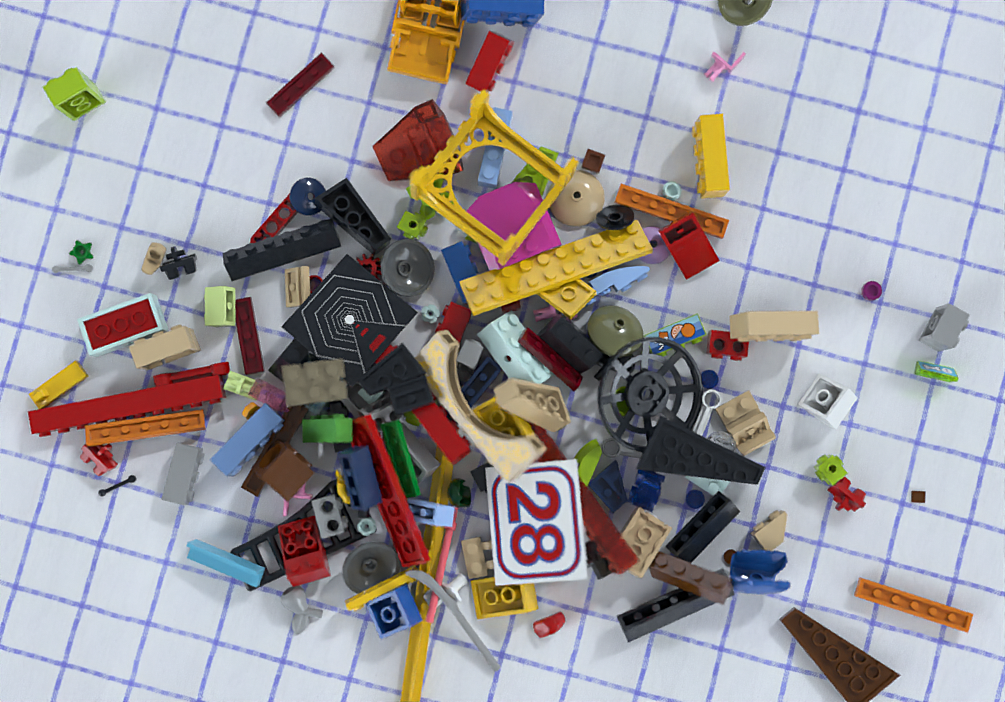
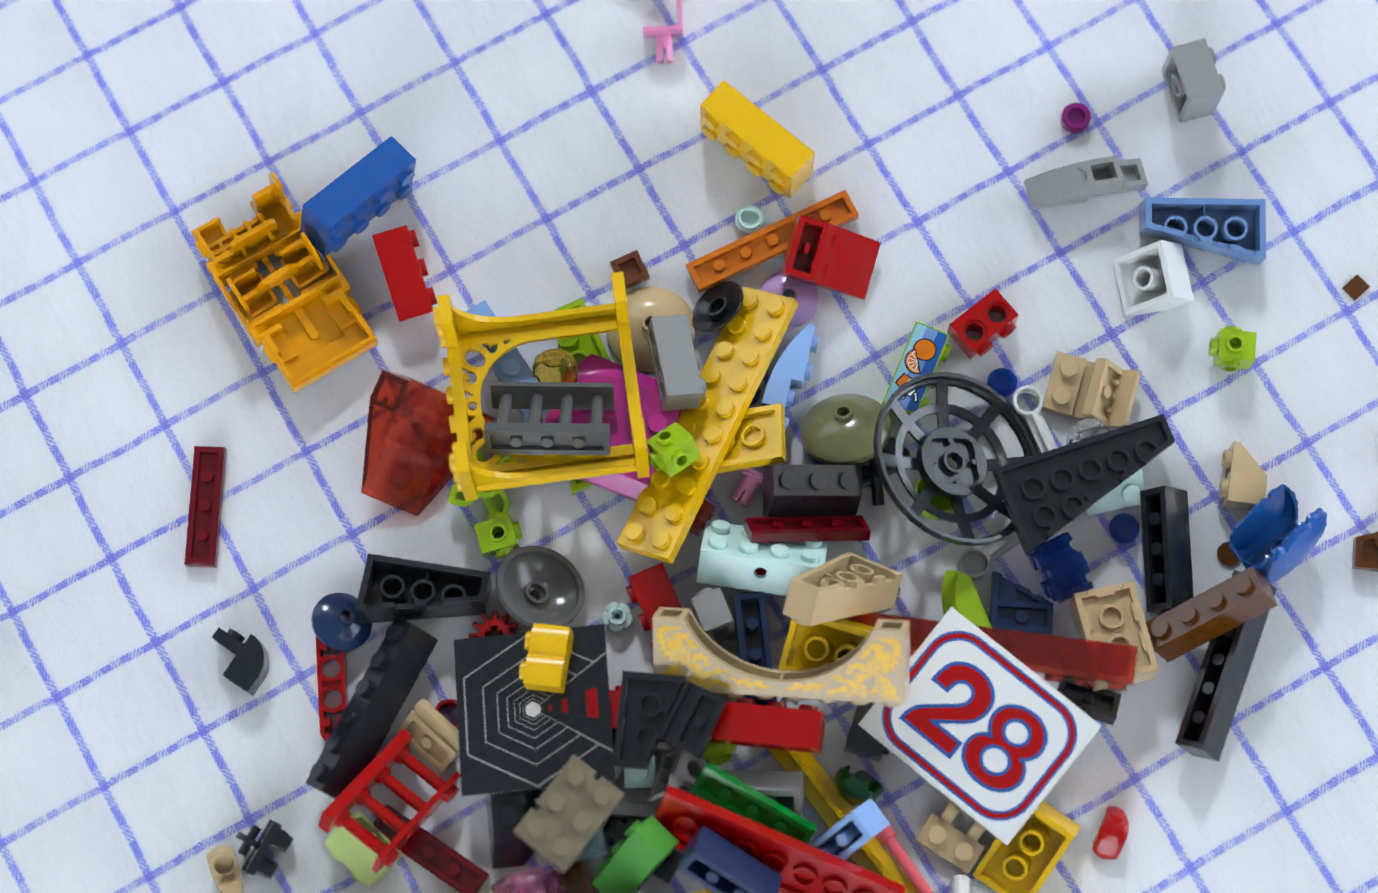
camera: 45 degrees left, 10 degrees down
(252, 175) = (250, 663): none -> black brick
(257, 281) = (379, 772): none -> red fence
(376, 303) = (547, 658): none -> yellow brick
(459, 264) = (598, 530): blue brick -> none
(479, 211) = (549, 438): none -> dark grey fence
(510, 176) = (555, 366): none -> clear yellow hair
(523, 264) = (672, 449): none -> lime brick
(568, 225) = (675, 362): none -> light grey brick
(774, 325) = (1012, 251): tan brick -> none
(845, 325) = (1085, 179): none -> light grey slope
(846, 498) = (1281, 363): red hips -> none
(880, 402) = (1209, 224): none -> medium blue wedge
(935, 372) = (1233, 137): slope -> none

